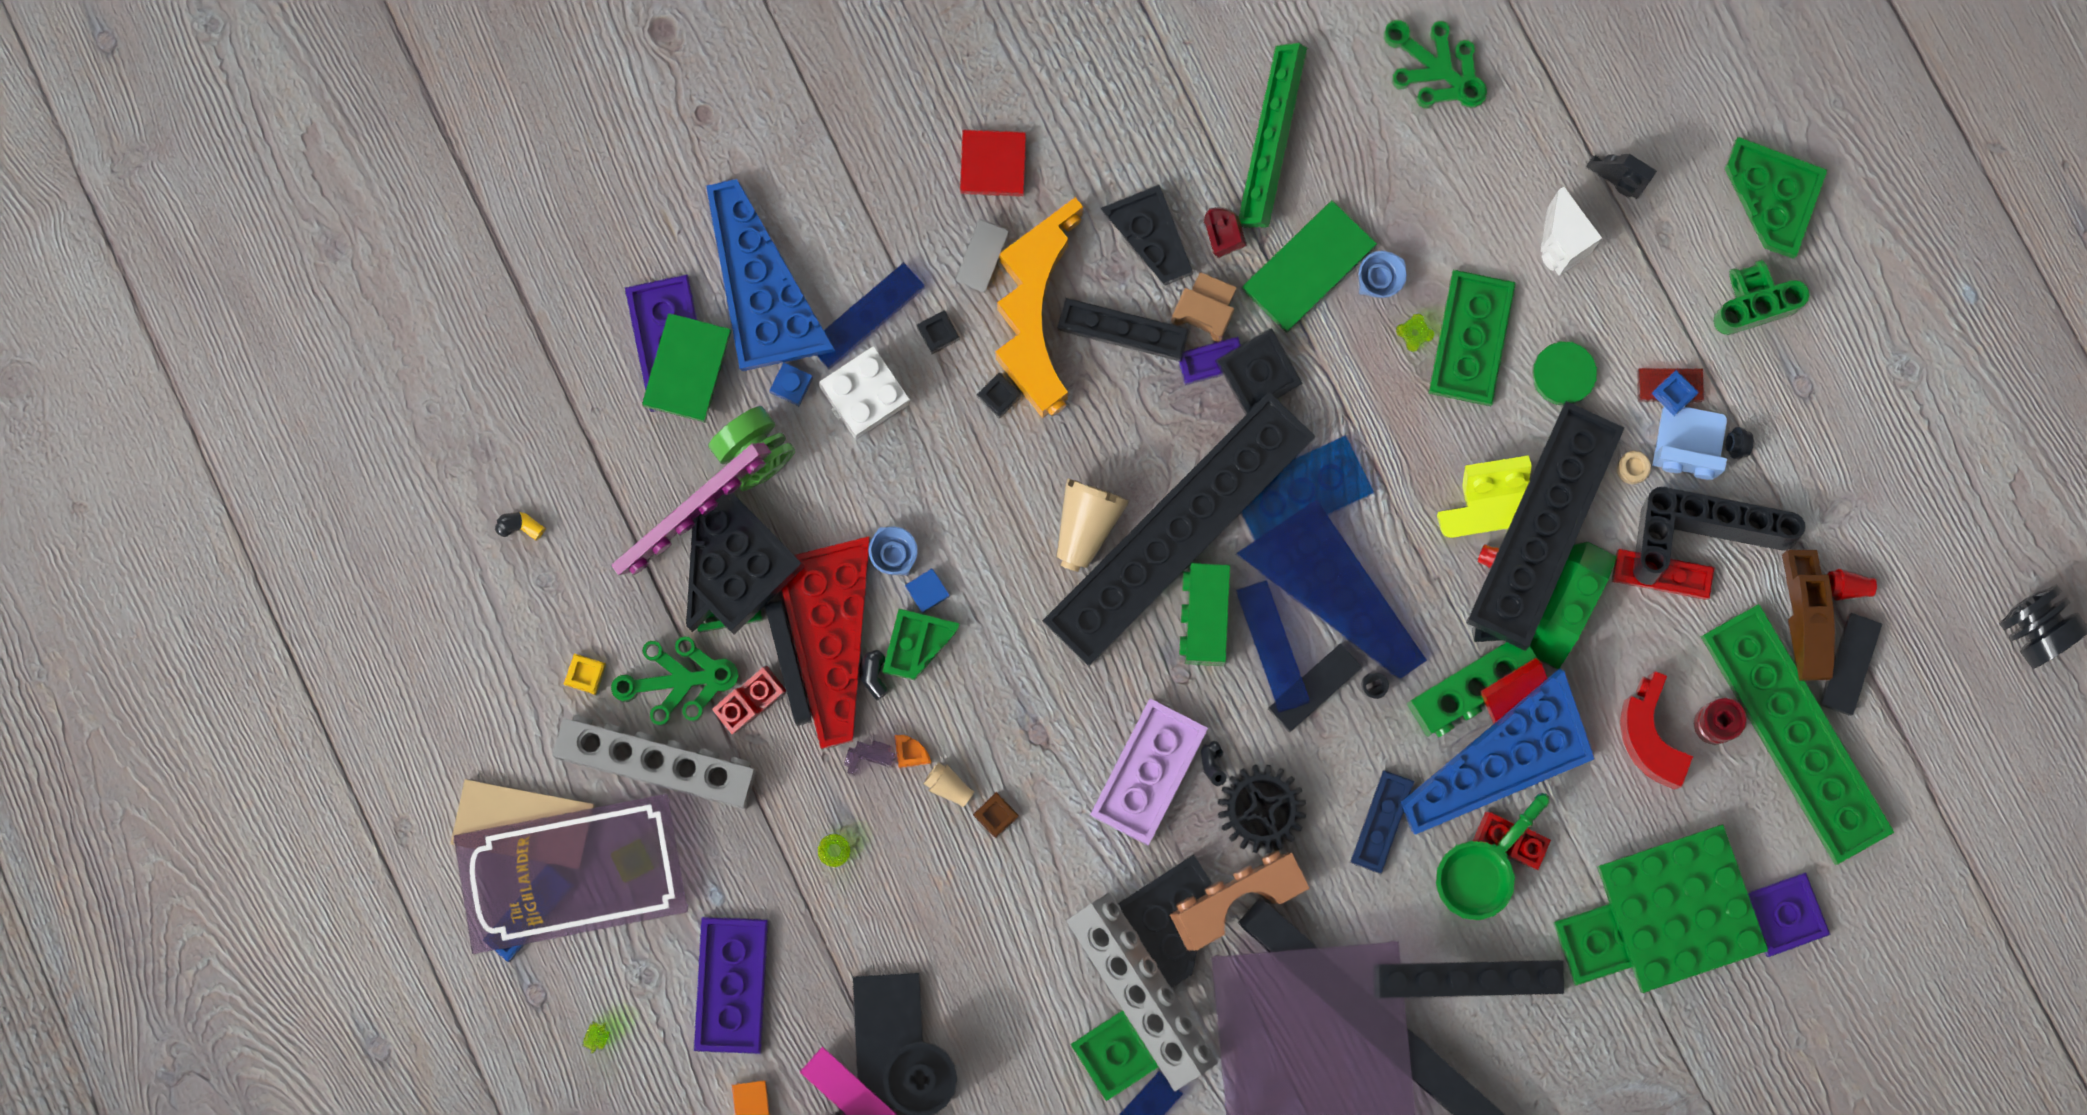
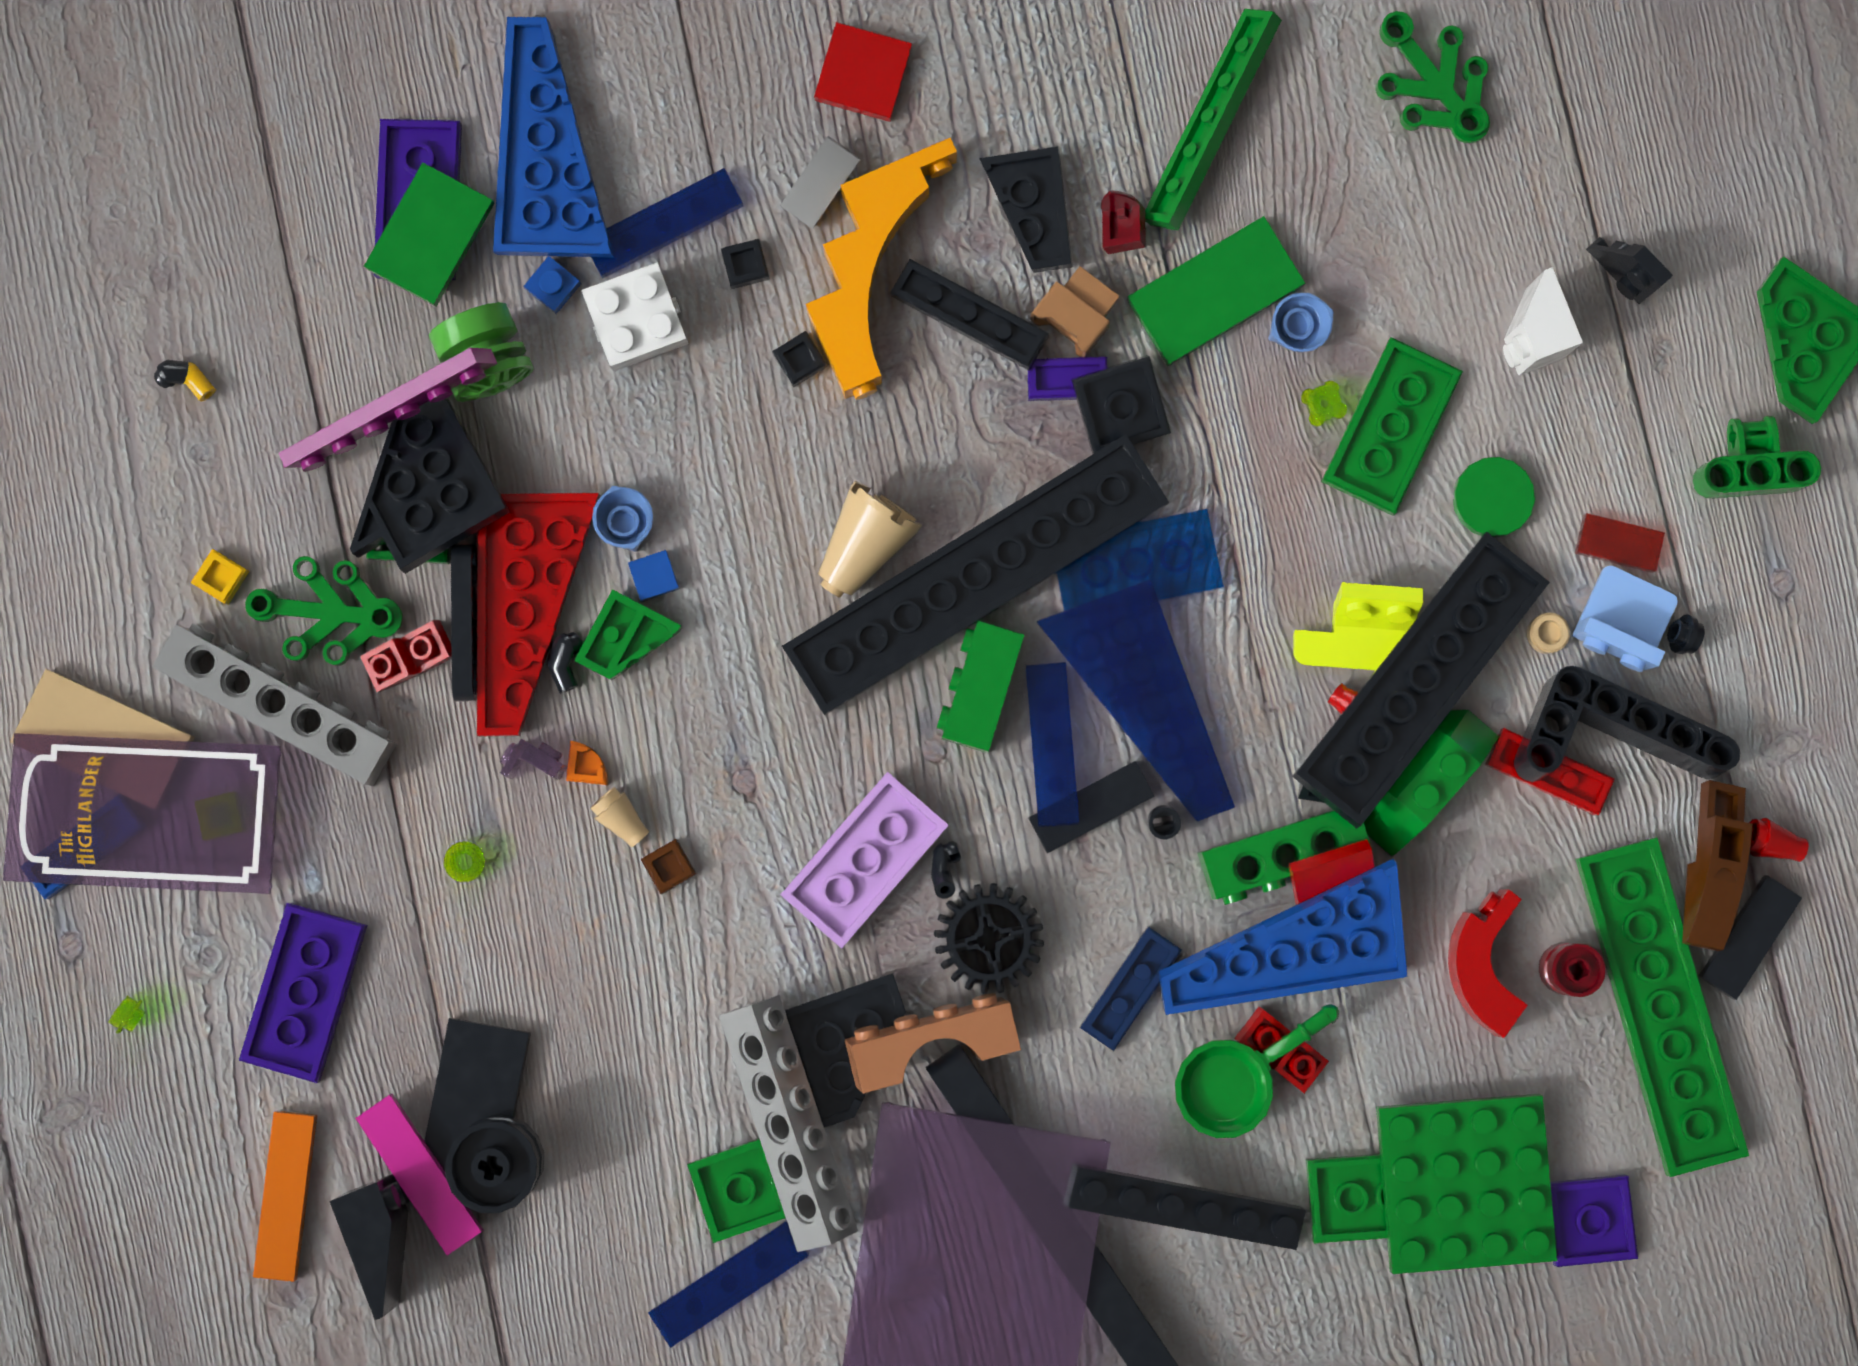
camera: 15 degrees right, 5 degrees up
(1675, 393) = (1622, 554): blue tile -> none

